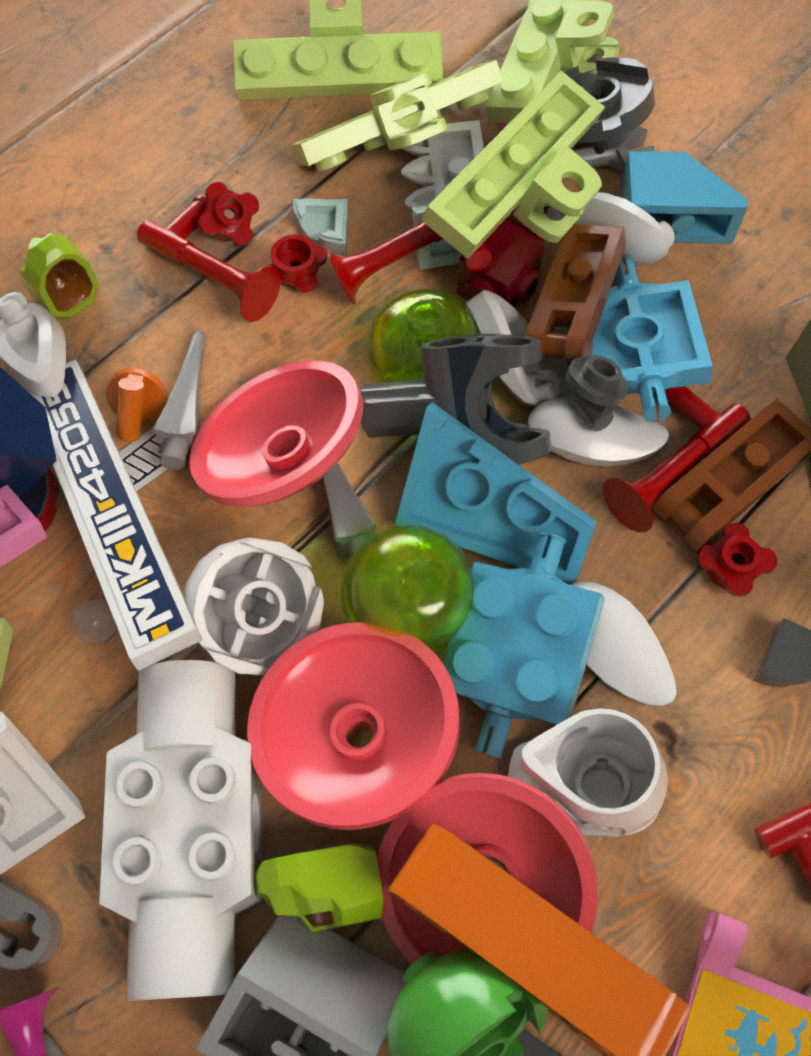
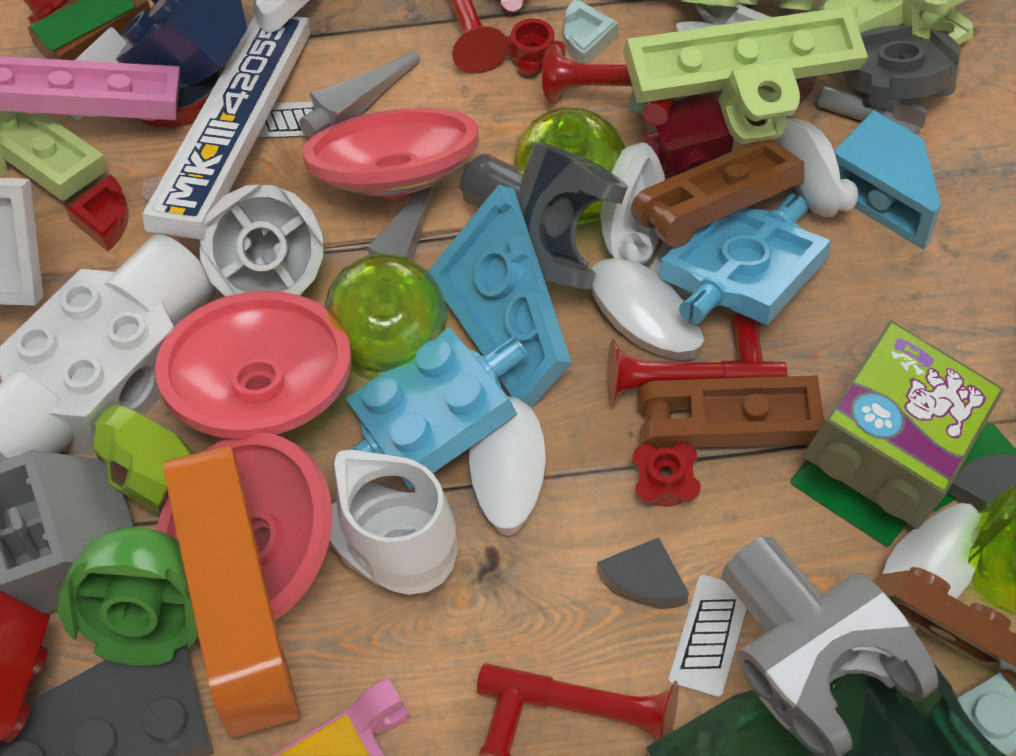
camera: 40 degrees right, 10 degrees down
(46, 672) = (101, 212): none -> red tile
(136, 400) = (322, 67): orange plate -> none
(594, 389) = (656, 259): dark grey plate -> none

